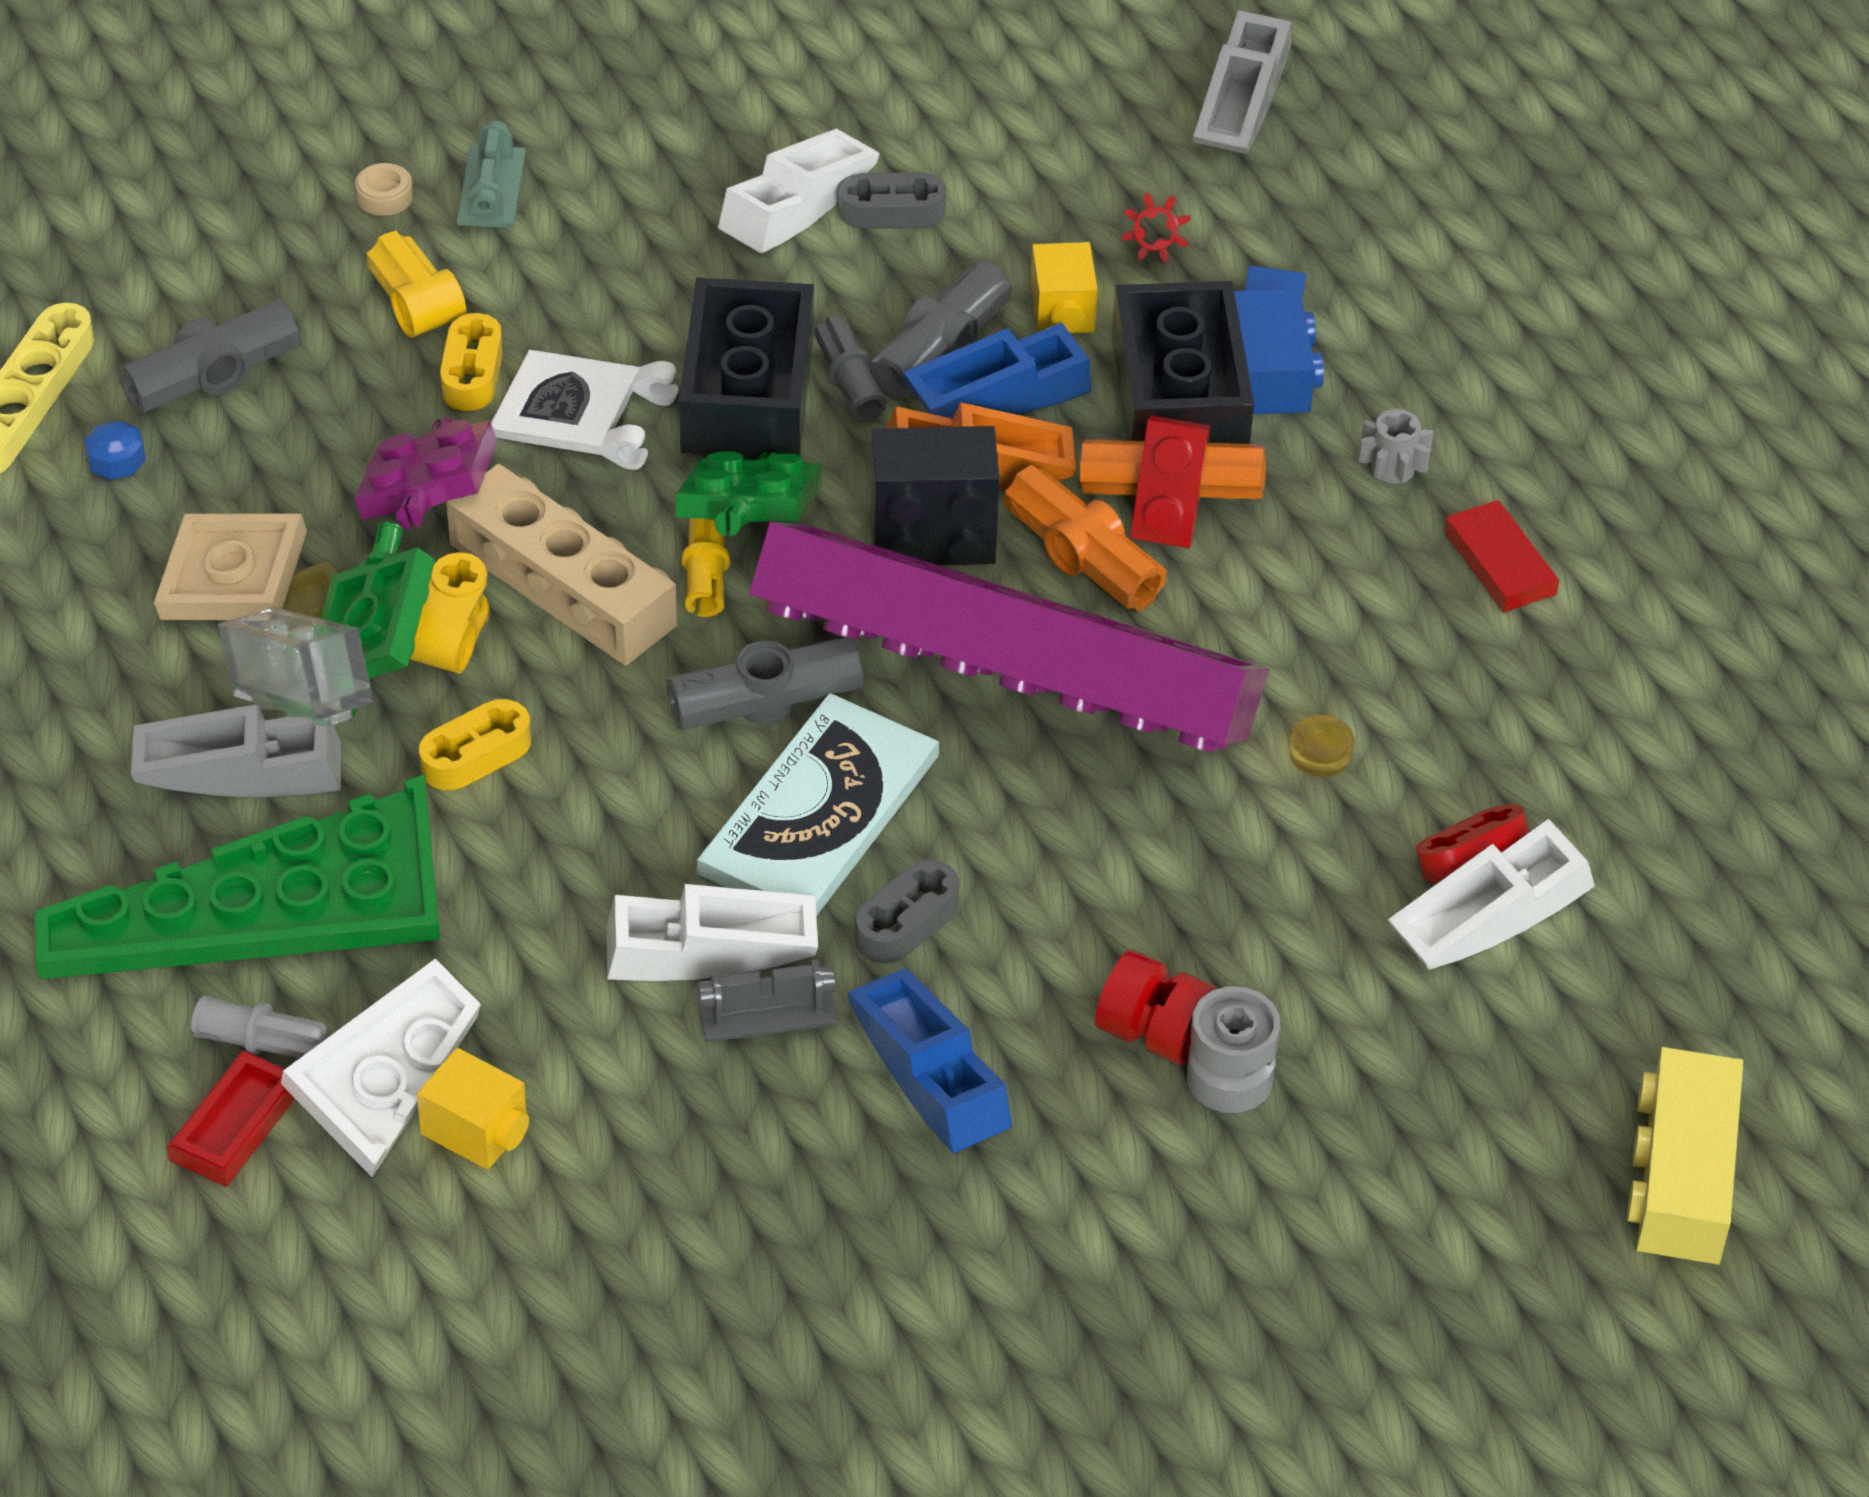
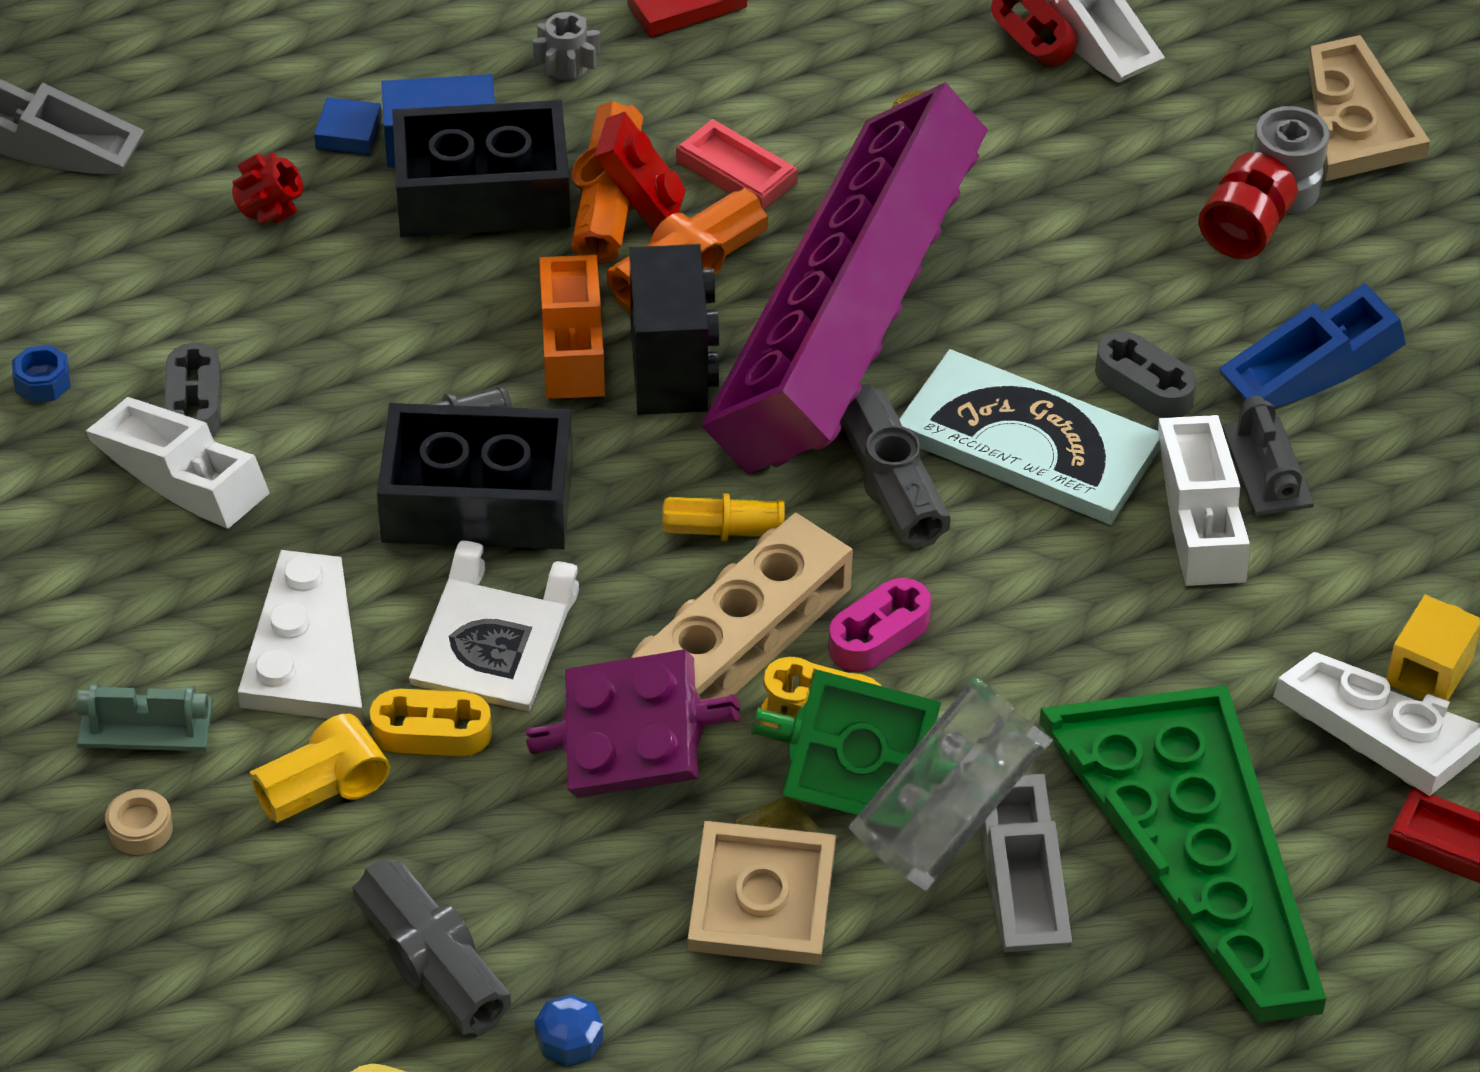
camera: 90 degrees left, 0 degrees up
(255, 1027) = (1365, 822): light grey axle -> none
(475, 744) = (966, 651): yellow beam -> none
(570, 277) = (303, 643): none -> white wing
(572, 668) = (874, 618): none -> dark pink beam
(748, 490) = (666, 461): green plate -> none
(914, 100) = (41, 373): none -> blue tile
(941, 325) = (400, 346): dark grey piece -> none
(1004, 373) = (475, 297): blue slope -> none
(1064, 286) = (349, 258): yellow brick -> none
(1233, 591) = (736, 163): none -> coral tile
(1339, 1152) = (1362, 110): none -> tan wing

